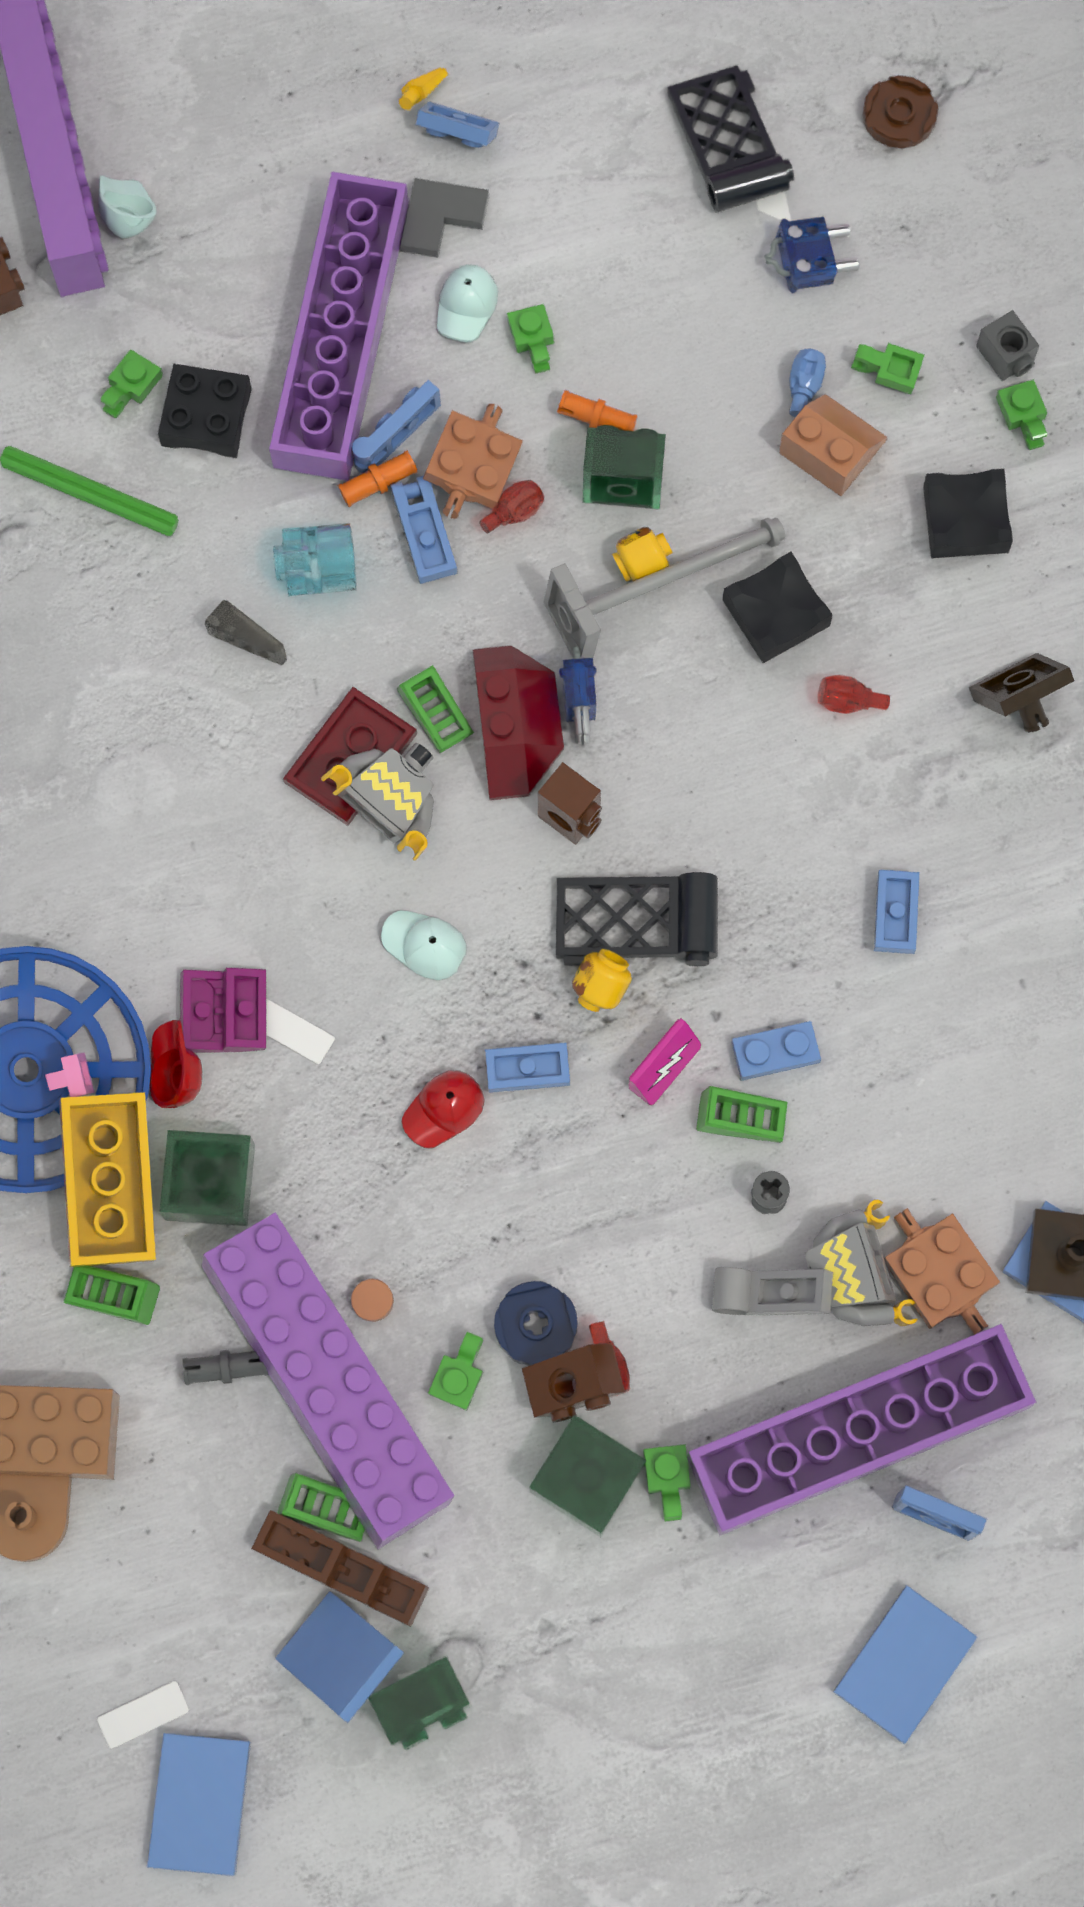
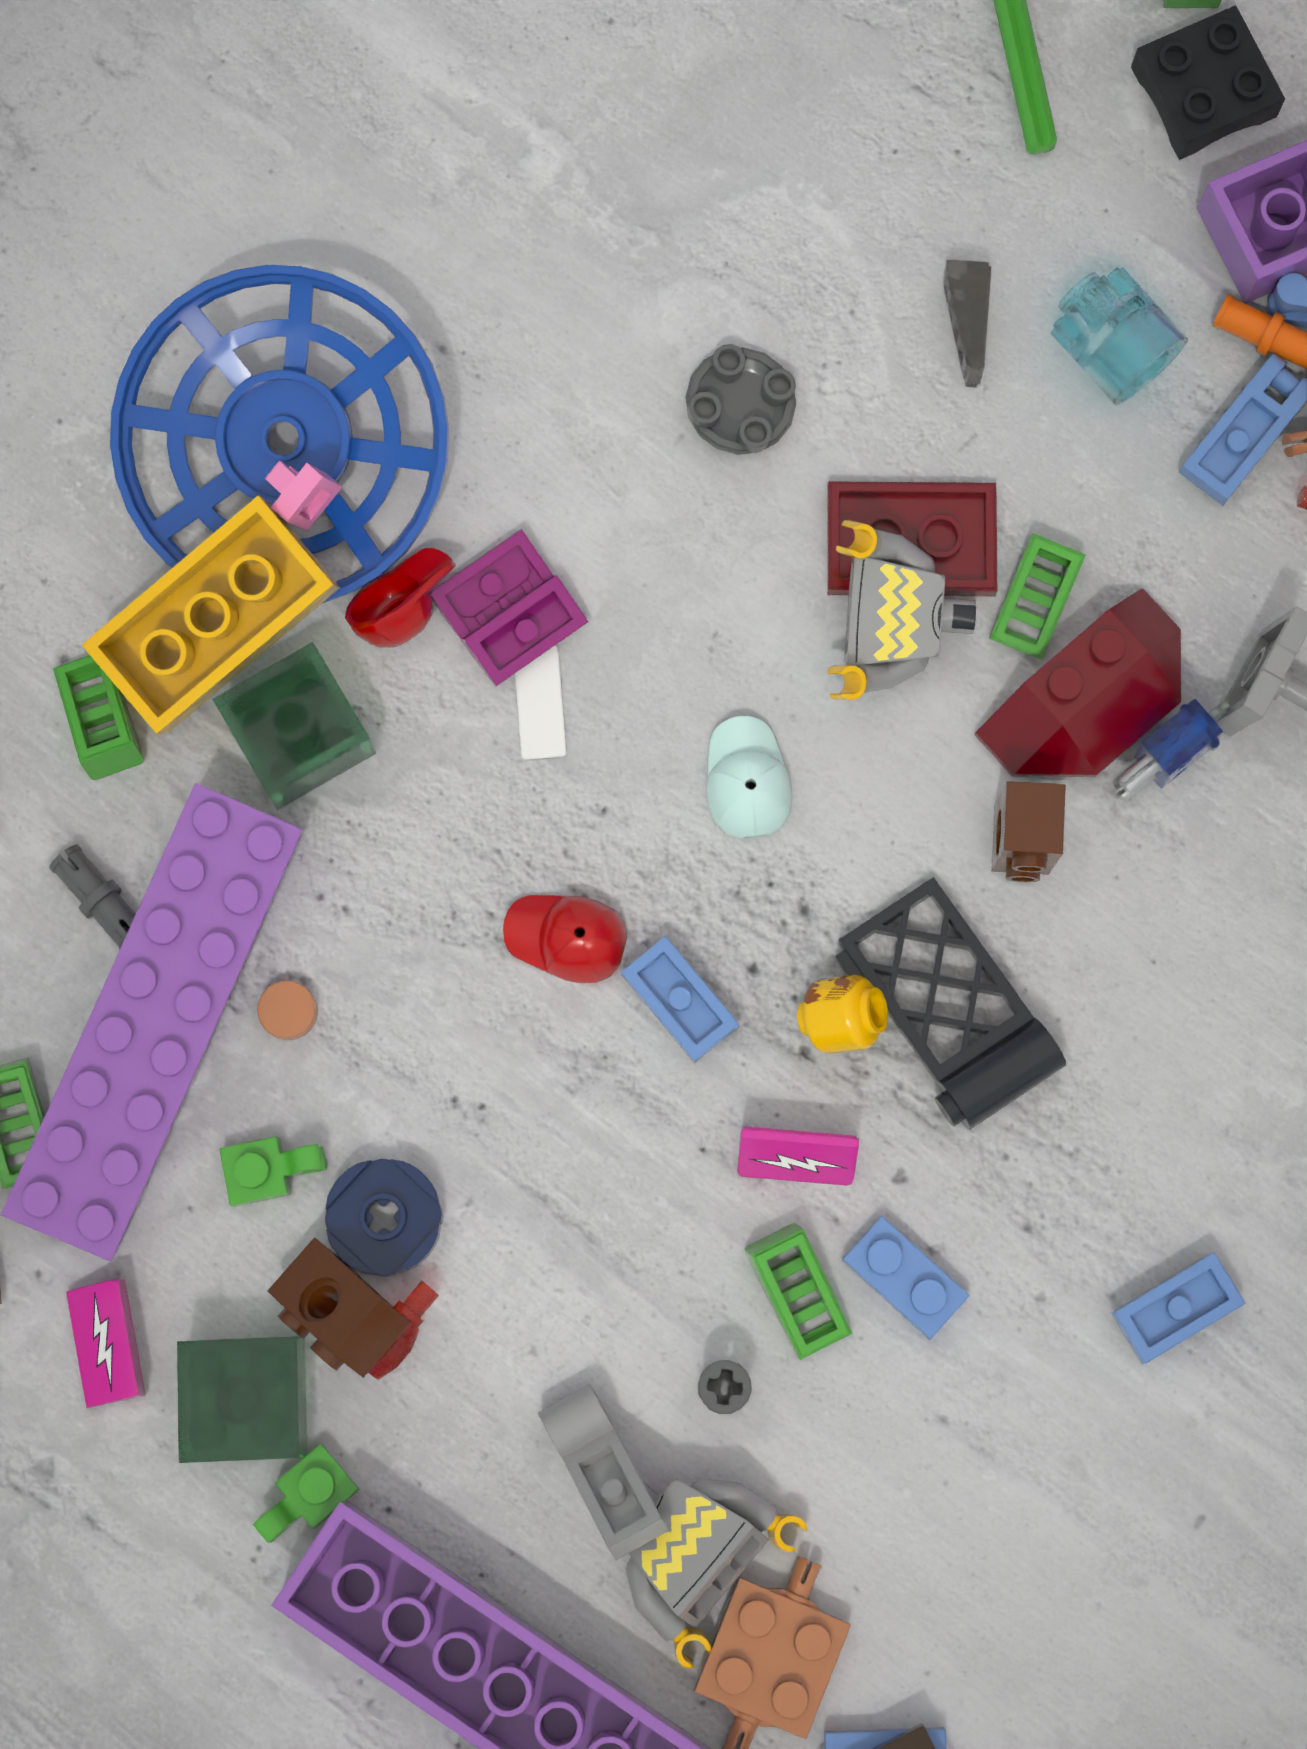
camera: 55 degrees right, 5 degrees up
(198, 794) = (741, 400): none -> dark grey dish
(496, 1539) = (105, 1343): none -> dark pink slope

